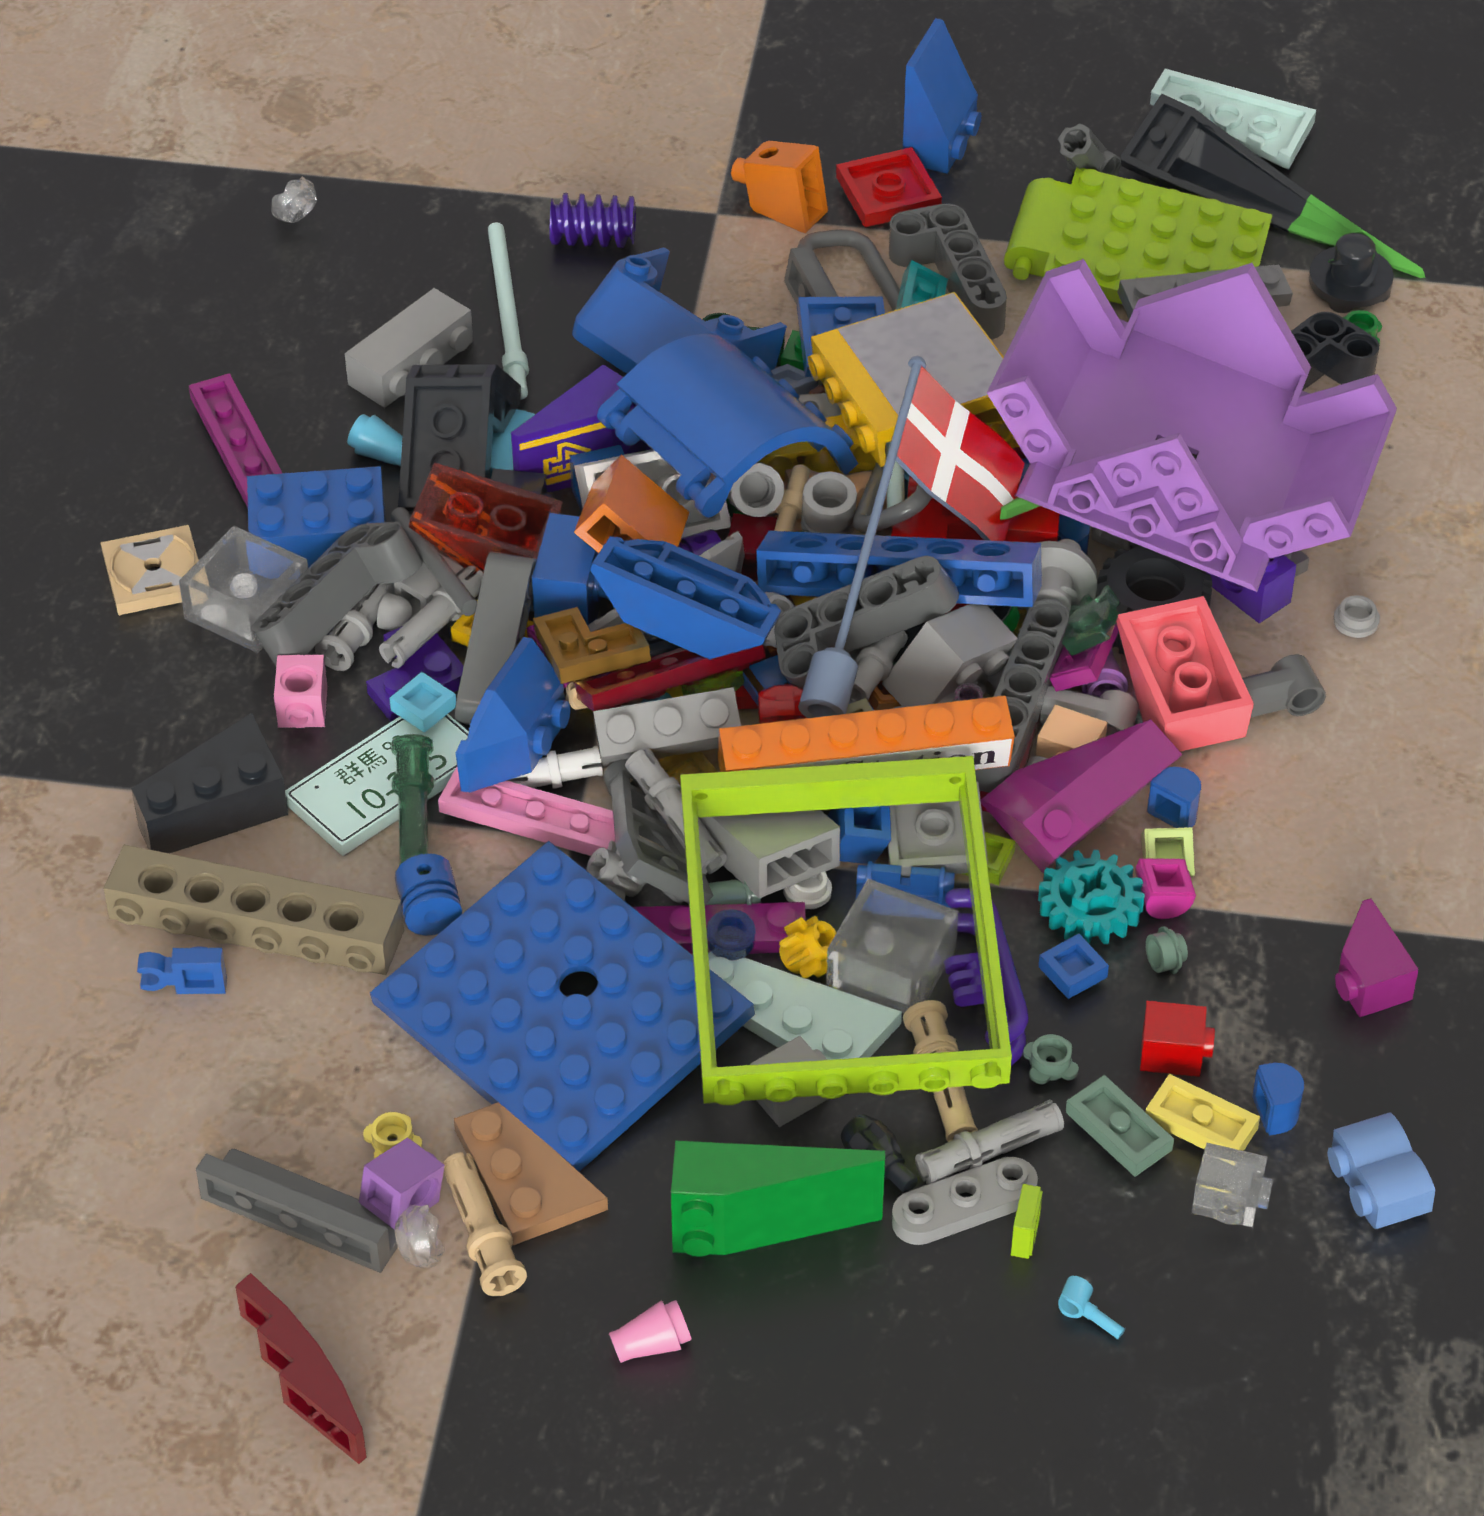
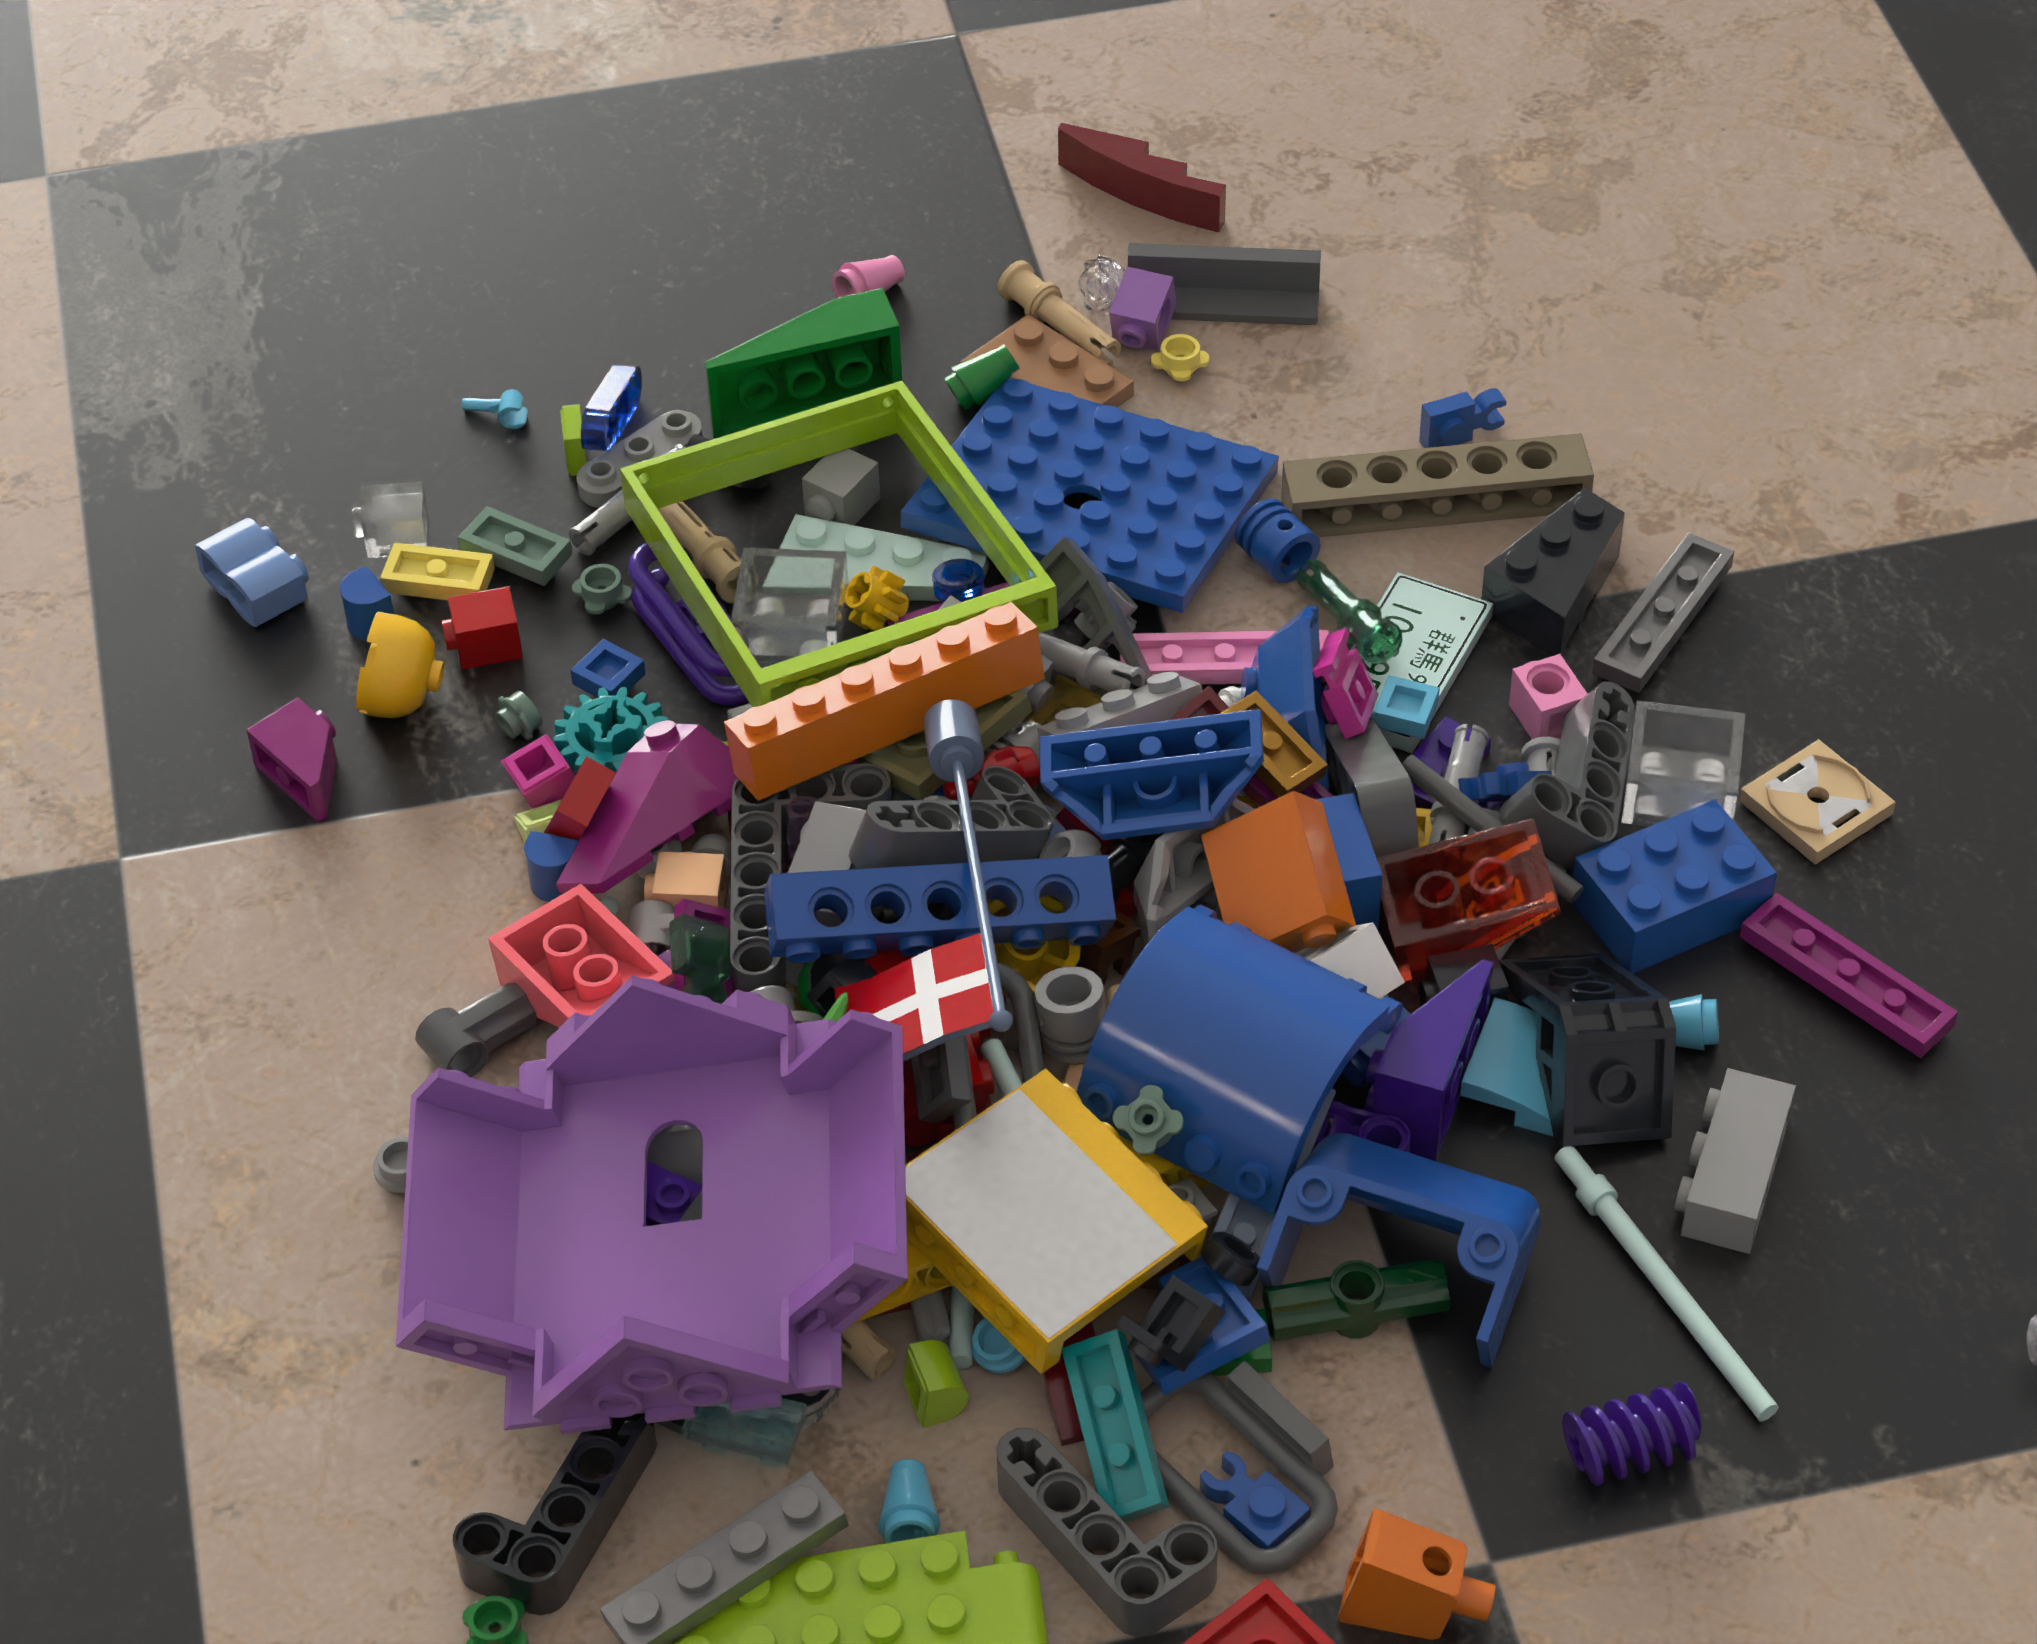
camera: 160 degrees right, 0 degrees up
(148, 742) = (1663, 612): none -> flat silver plate
(392, 602) = (1498, 785): none -> blue plate
(462, 709) = (1349, 689): none -> dark pink plate
(601, 1158) = (980, 376): none -> green cone
(793, 352) = (1231, 1258): none -> black tile
(819, 391) = (1148, 1137): none -> sand green plate
(847, 266) = (1258, 1508): none -> blue plate
(865, 299) = (1173, 1326): none -> black bracket
(979, 1230) = (611, 408): none -> clear blue beam
(1147, 794) = (580, 800): none -> red piece
(1267, 998) = (397, 668): none -> yellow cylinder

